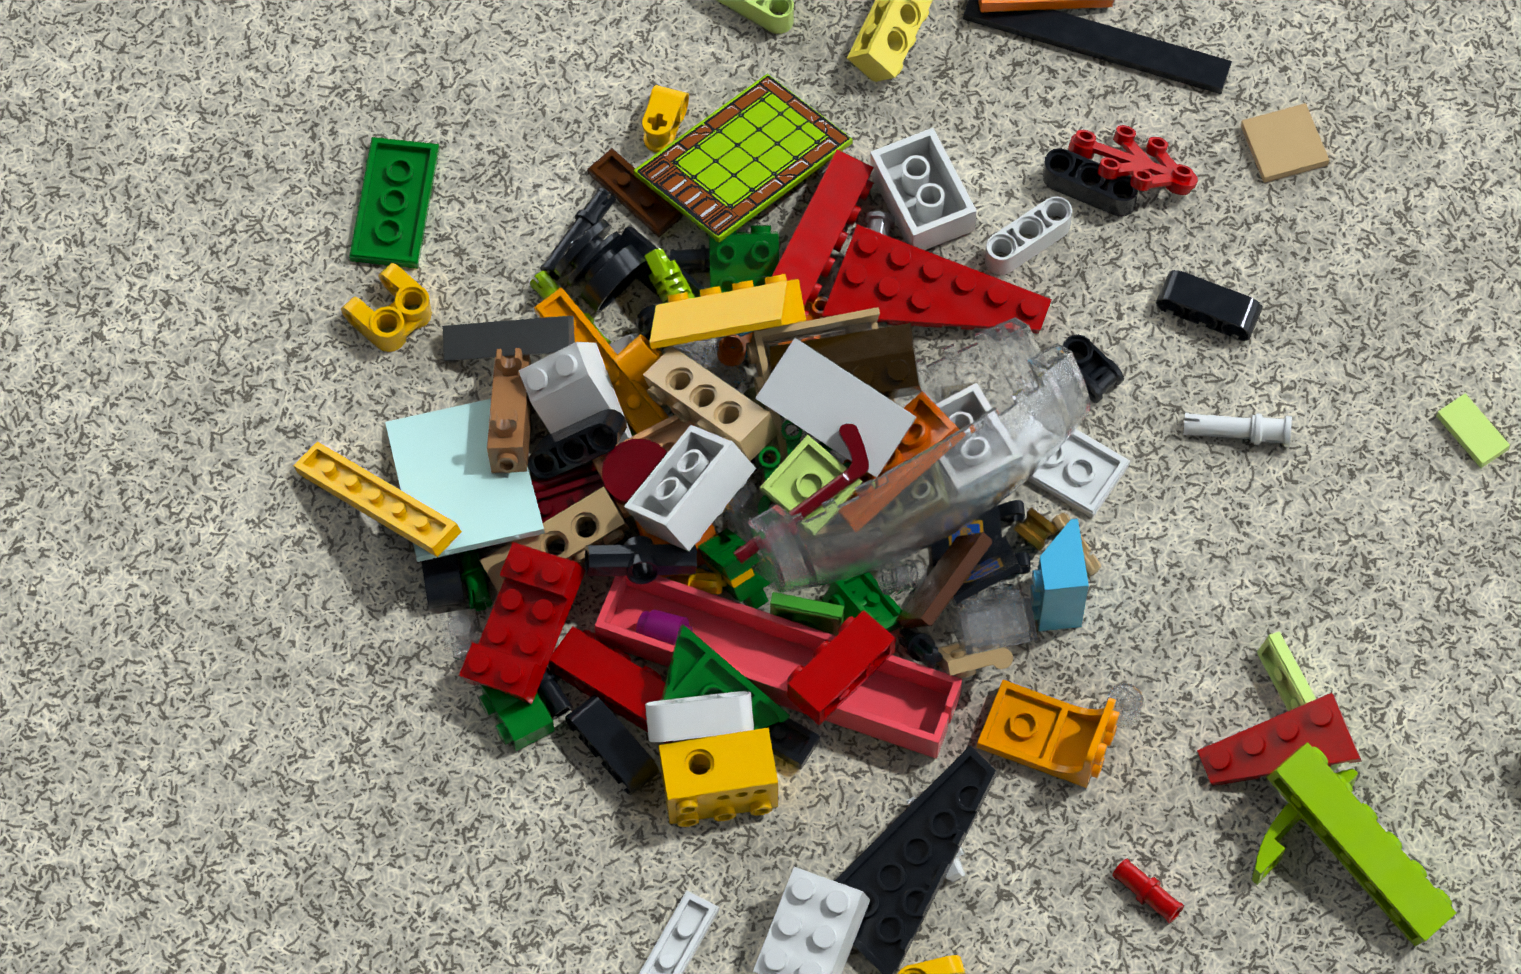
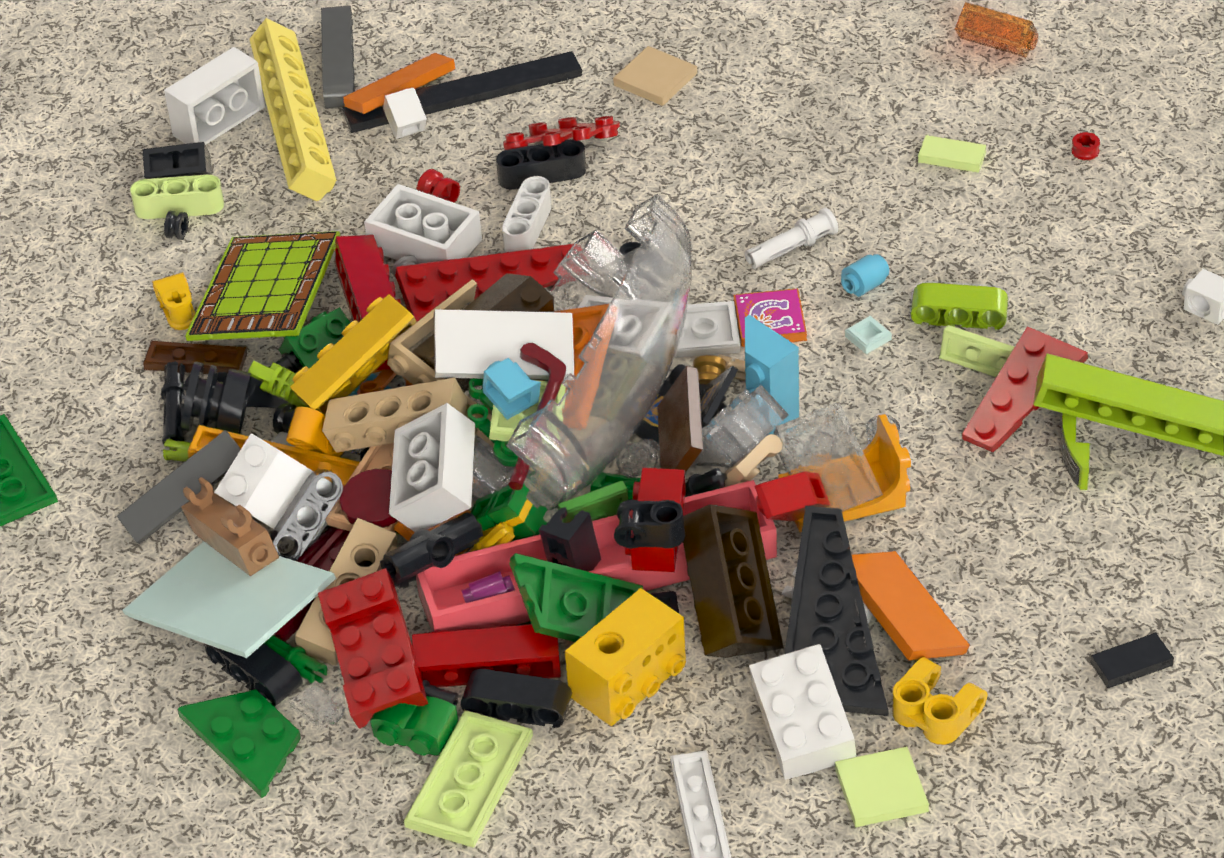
camera: 35 degrees left, 20 degrees down
(371, 322) = (70, 541): yellow piece -> none
(377, 499) = (170, 642): yellow plate -> none
(386, 620) = (245, 735): none -> green wing
(520, 790) = (468, 778): none -> yellowish green tile
(699, 716) = (577, 615): white beam -> none
(727, 28) = (176, 225): none -> black bush
(753, 645) = (572, 542): none -> black hinge
(801, 459) = (510, 388): none -> medium azure window
(806, 674) = (652, 524): none -> black piece
(857, 768) = (730, 582): none -> dark brown slope
(972, 723) = (787, 496): none -> red slope
(978, 144) = (435, 184): none -> red wheel
(989, 891) = (906, 608): none -> orange tile
(1015, 37) = (404, 113): none -> white panel
(1041, 705) = (828, 446): none -> clear slope
(1147, 500) = (776, 309): none -> tile
(1148, 890) = (1016, 536): red pin -> none
(1210, 304) = (699, 183): black beam -> none
(1216, 582) = (868, 334): none -> light aqua tile
(1266, 515) = (864, 274): none -> medium azure brick
(1319, 611) = (959, 305): none -> lime beam

